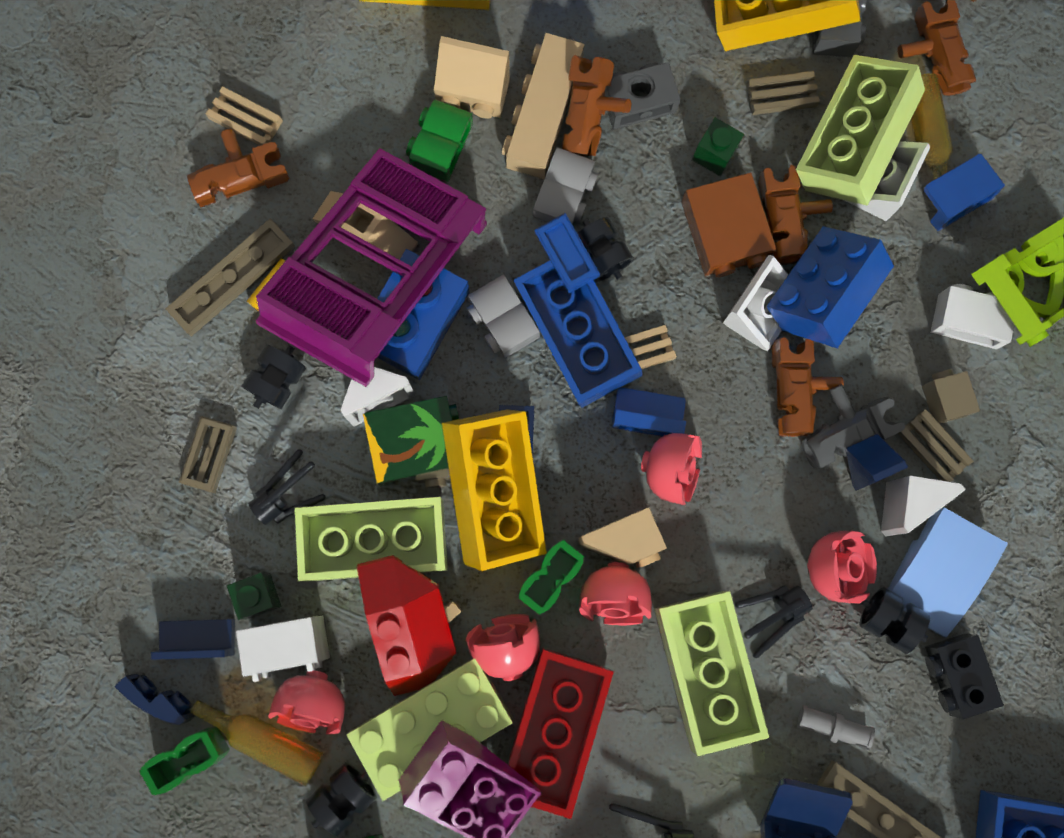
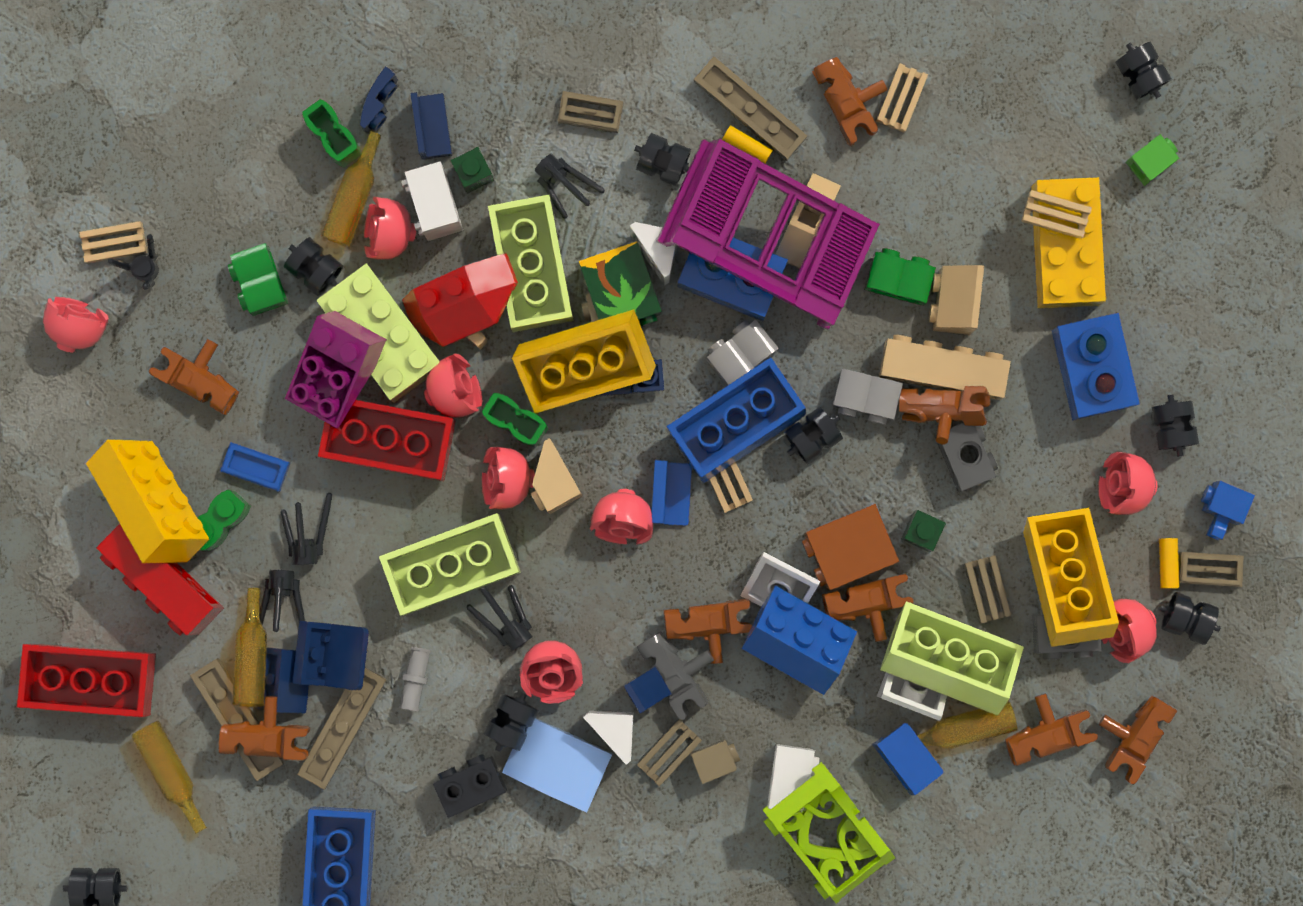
camera: 90 degrees right, 5 degrees up
(567, 253) = (798, 400): blue tile -> none

